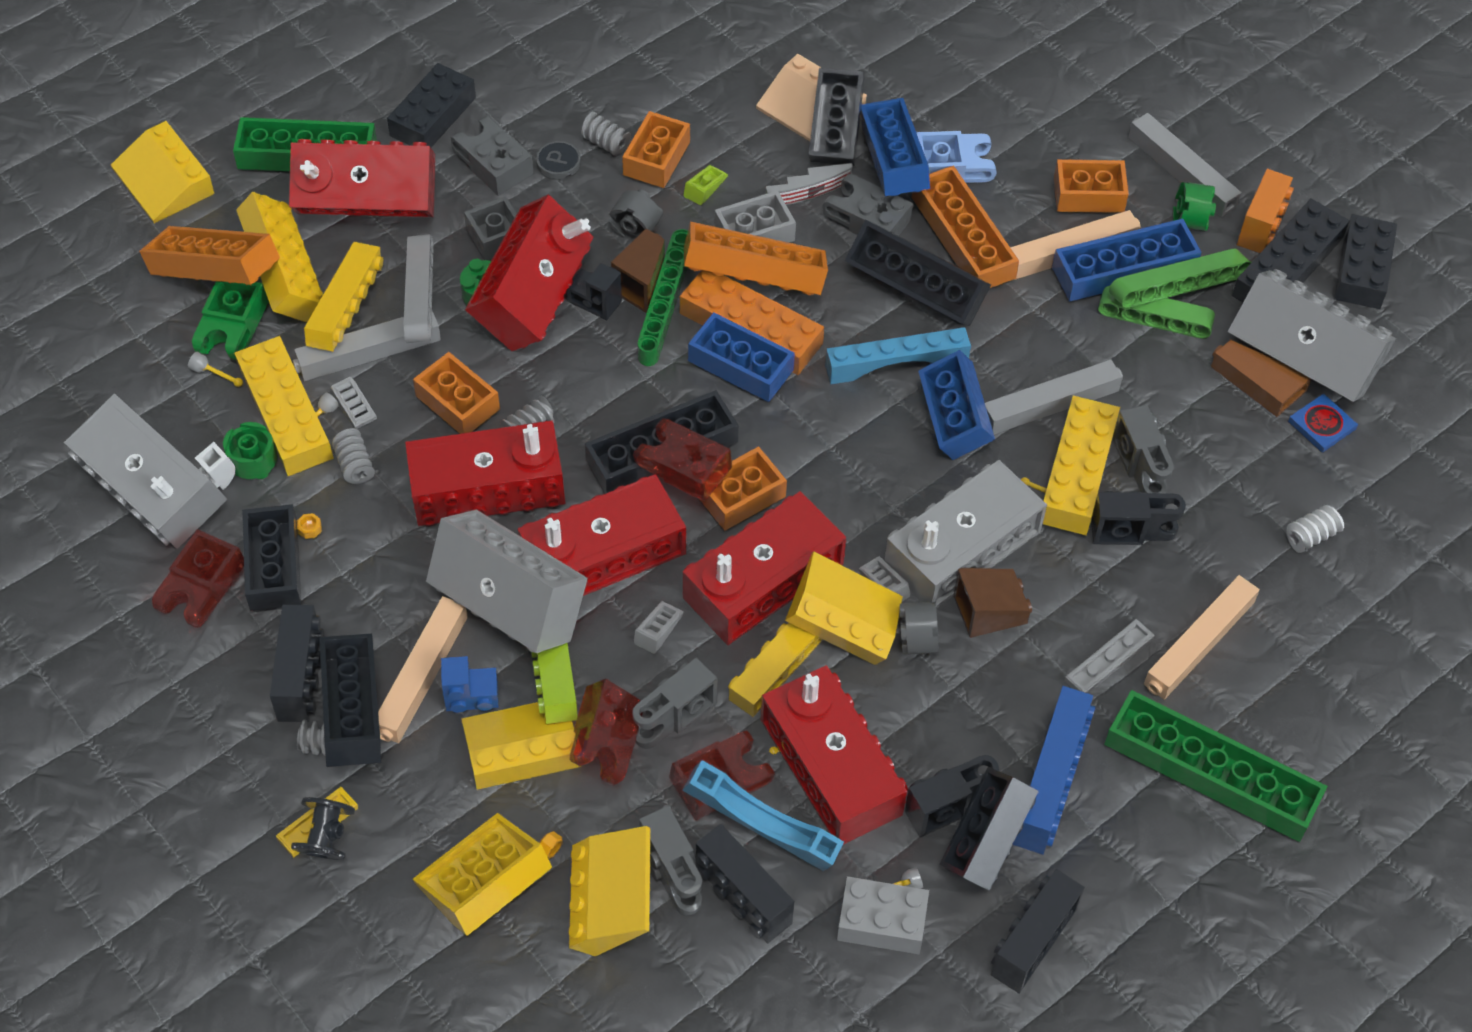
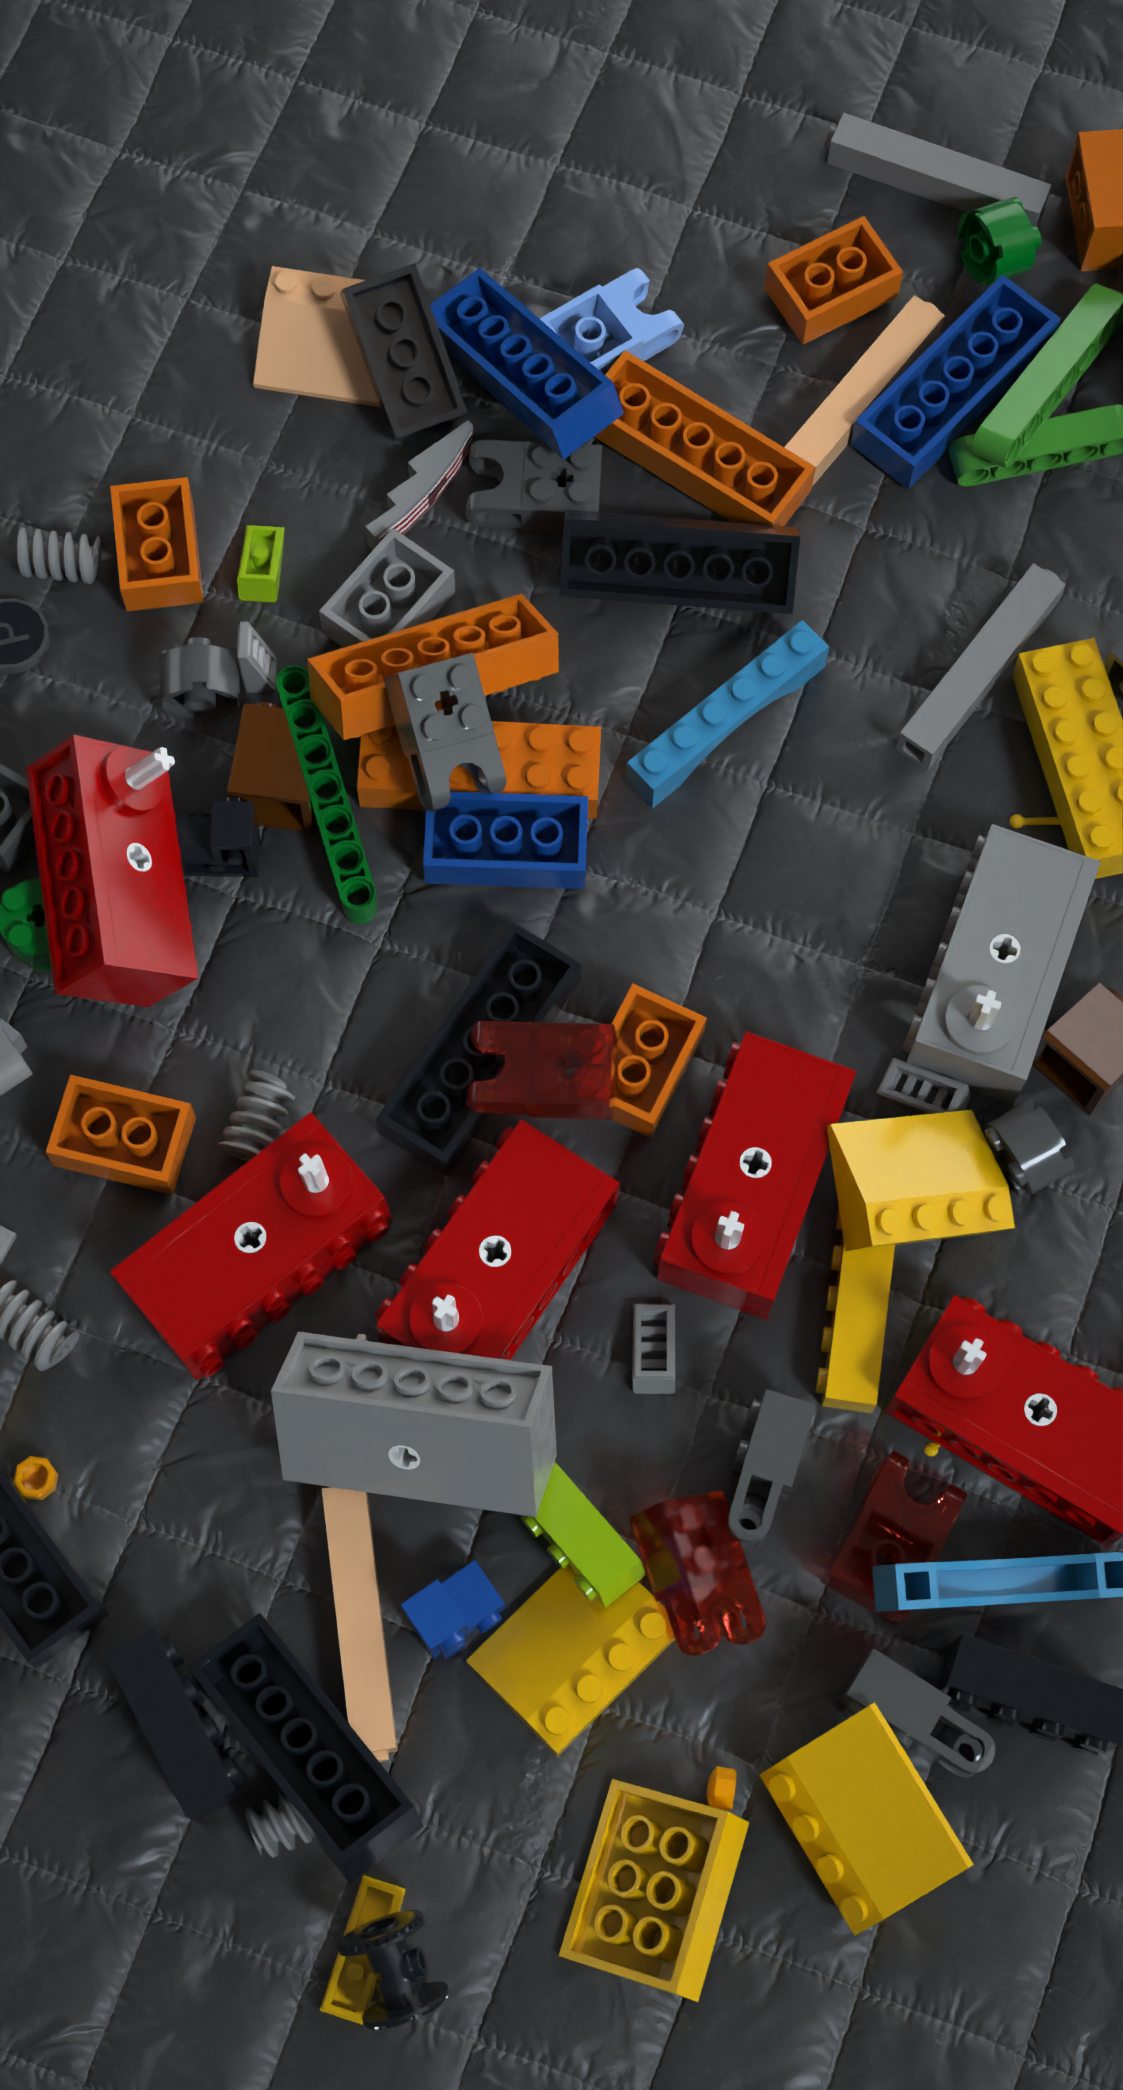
camera: 30 degrees left, 15 degrees up
(668, 217) = (255, 661): none -> light grey slope
(737, 286) = (446, 737): none -> dark grey brick
(956, 405) = (865, 756): blue brick -> none

